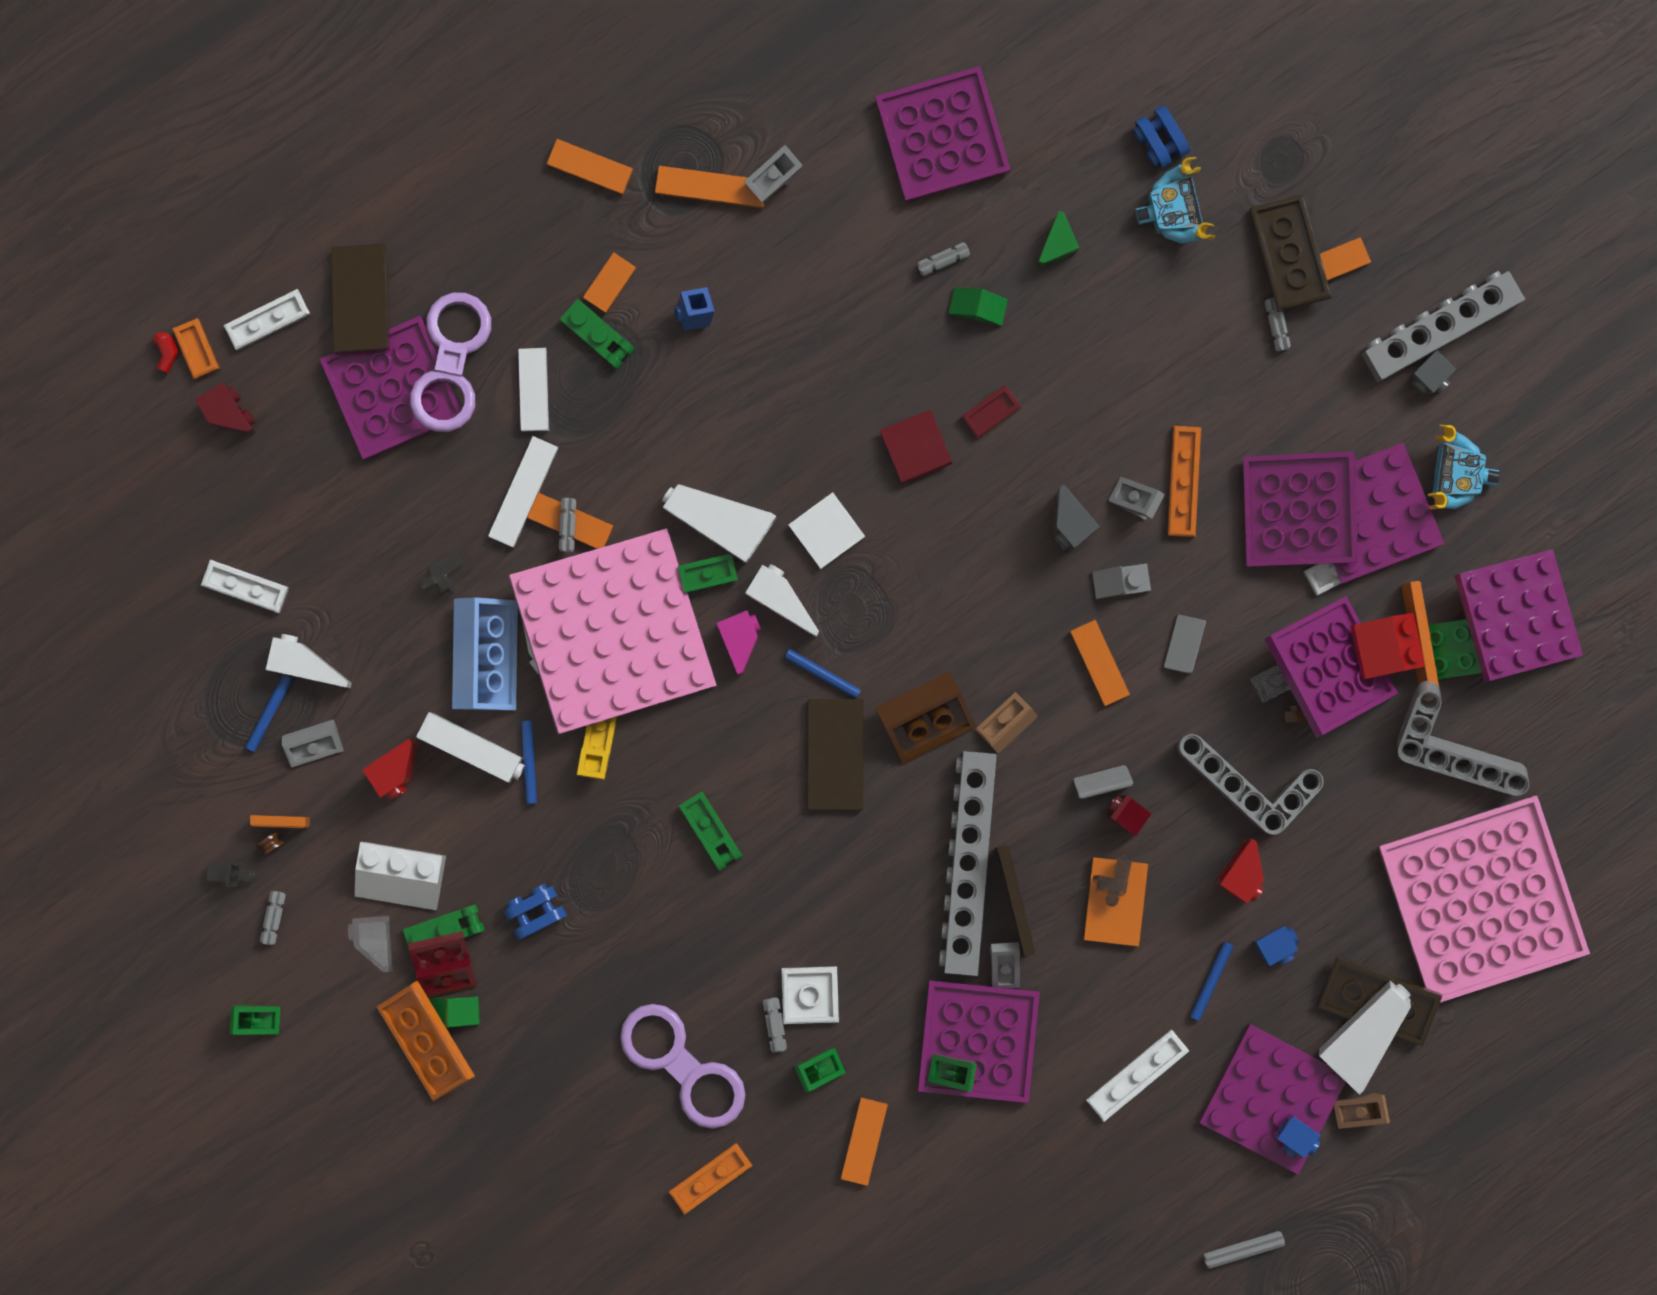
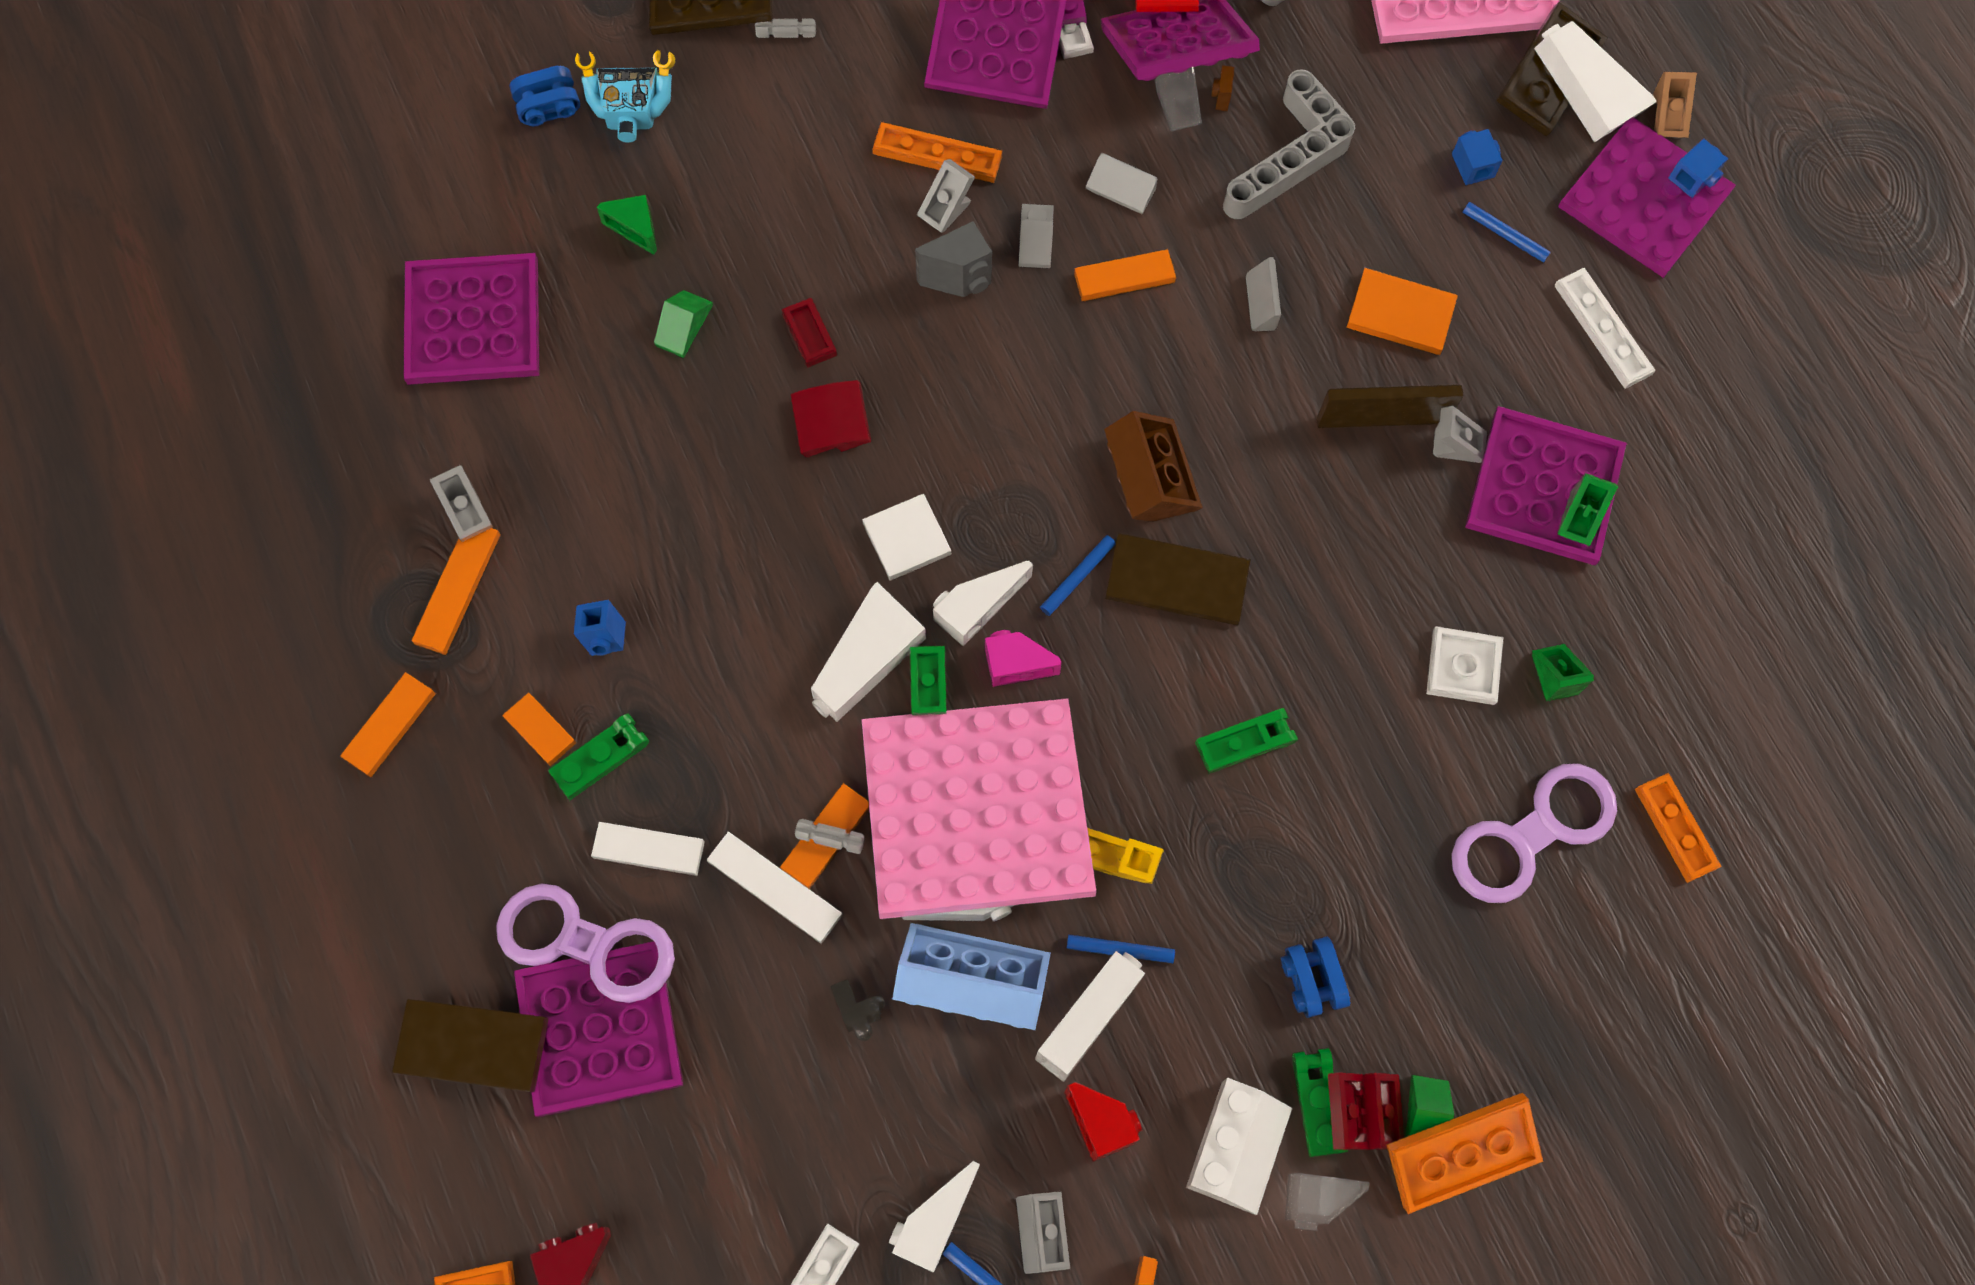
camera: 85 degrees left, 15 degrees down
(267, 320) = (463, 1181): white tile -> none
(775, 1024) = (1496, 712): light grey axle -> none
(864, 1141) = (1650, 637): orange tile -> none
(943, 259) = (618, 347): light grey axle -> none
(968, 962) = (1352, 447): light grey brick -> none
(1006, 722) = (1174, 386): medium nougat slope -> none
(1116, 885) = (1384, 296): clear smoke piece -> none
(1127, 814) = (1305, 273): dark red slope -> none
(1243, 873) = (1392, 165): red slope -> none
(1244, 1249) = (1815, 256): light grey axle -> none

